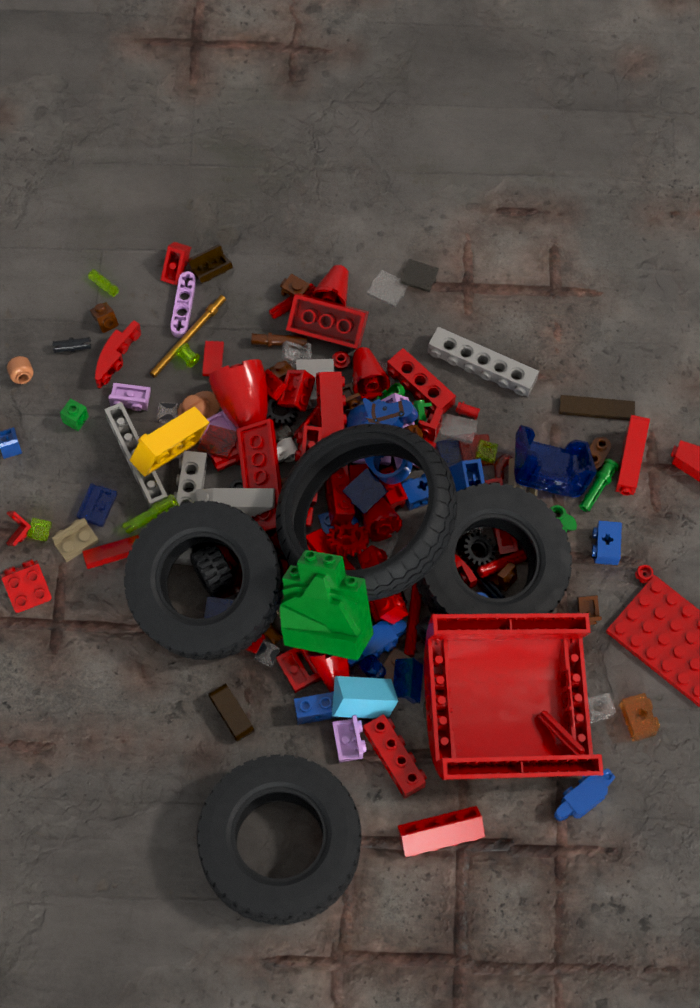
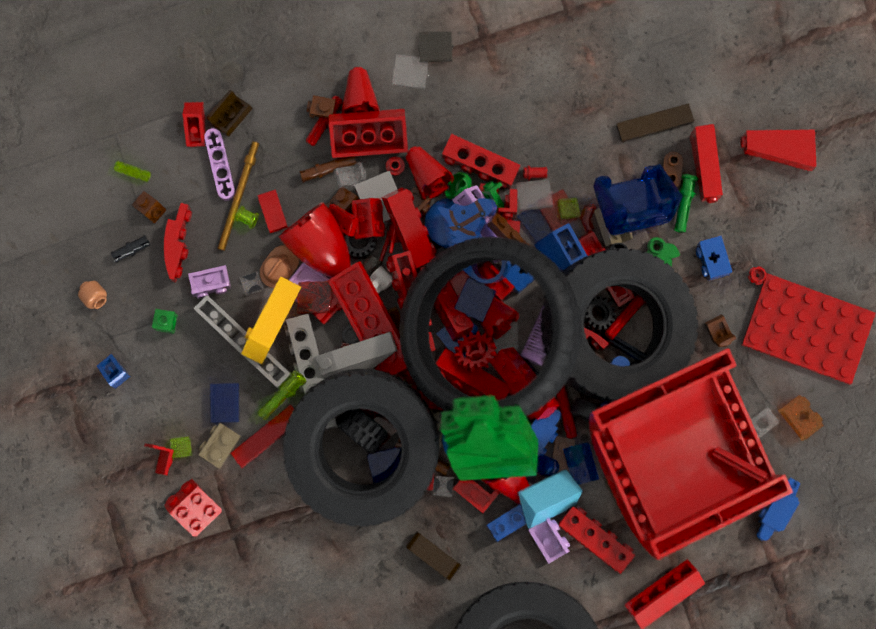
camera: 20 degrees left, 15 degrees up
(478, 353) = (559, 113): light grey brick -> none
(505, 577) = (632, 330): reddish brown bracket -> none

